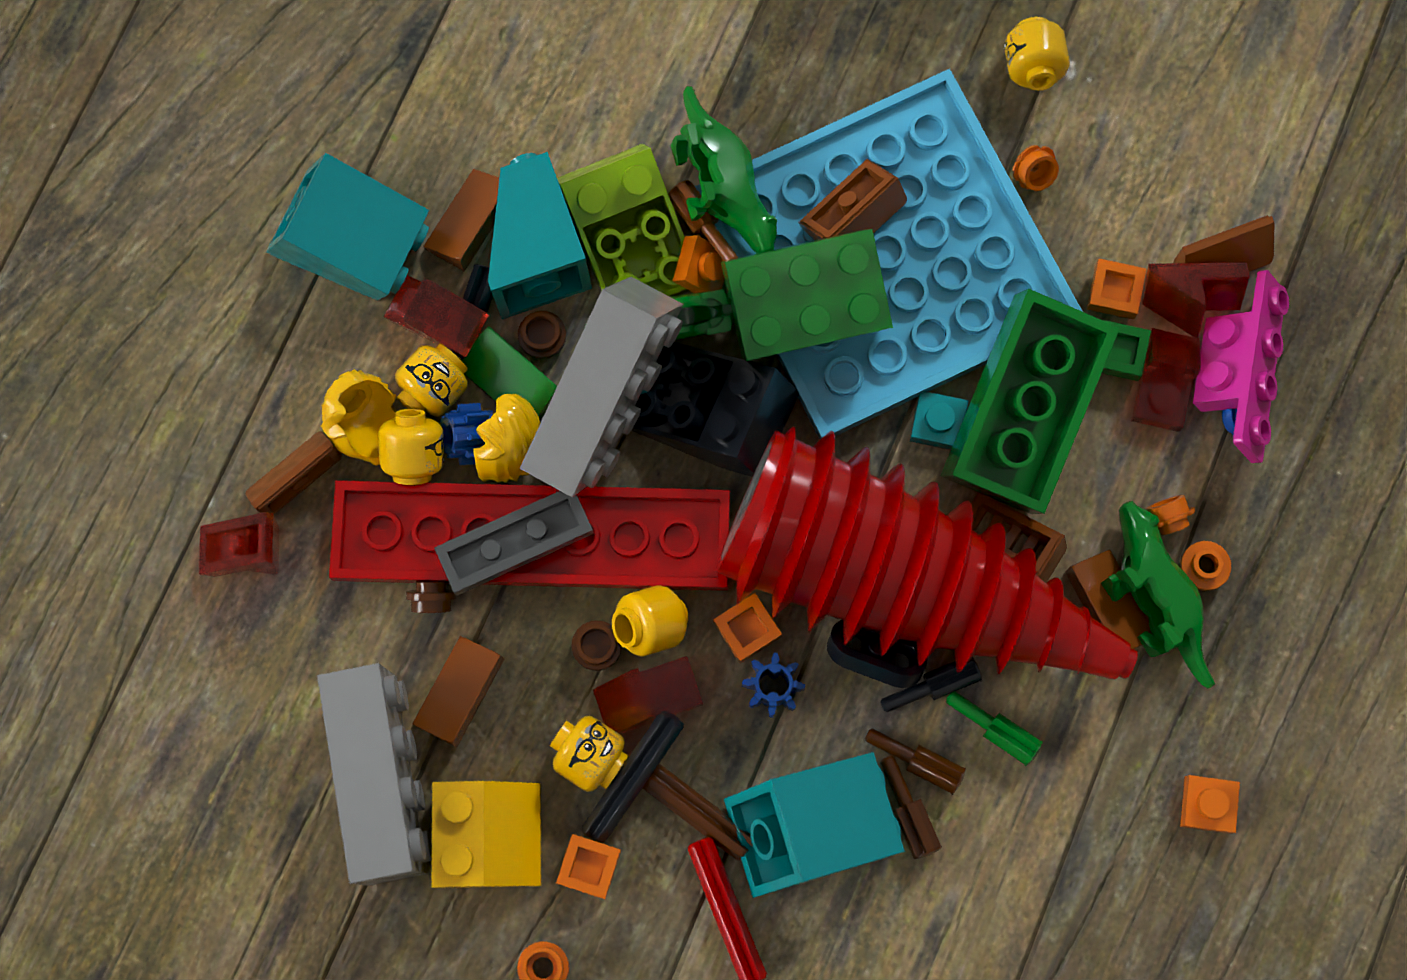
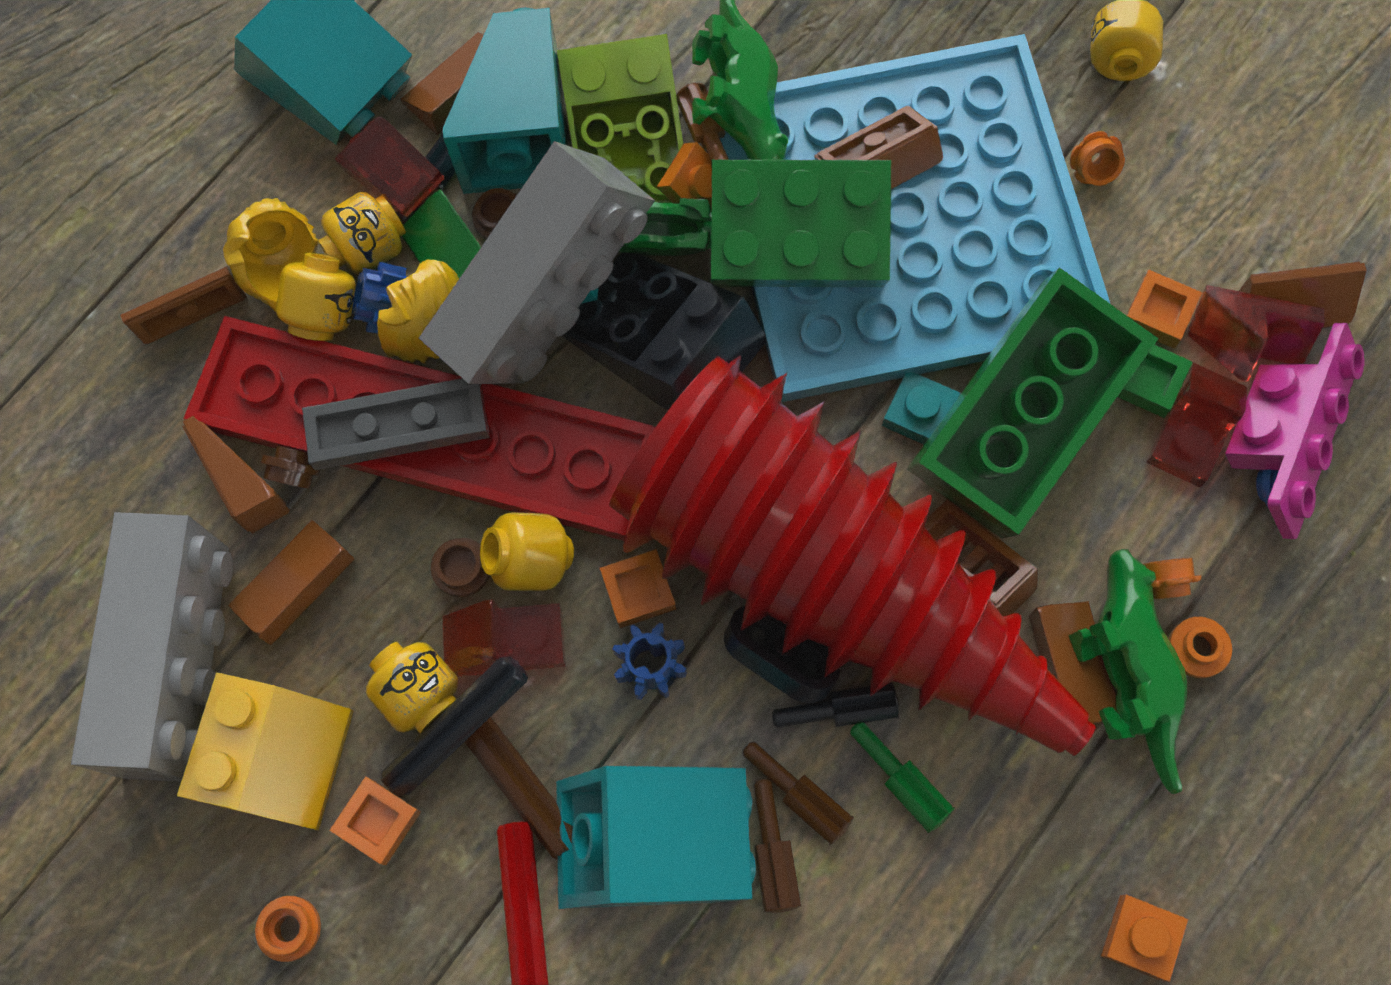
camera: 15 degrees right, 5 degrees down
(240, 546) = (106, 360): clear red slope -> none
(400, 626) = (243, 491): none -> dark orange slope

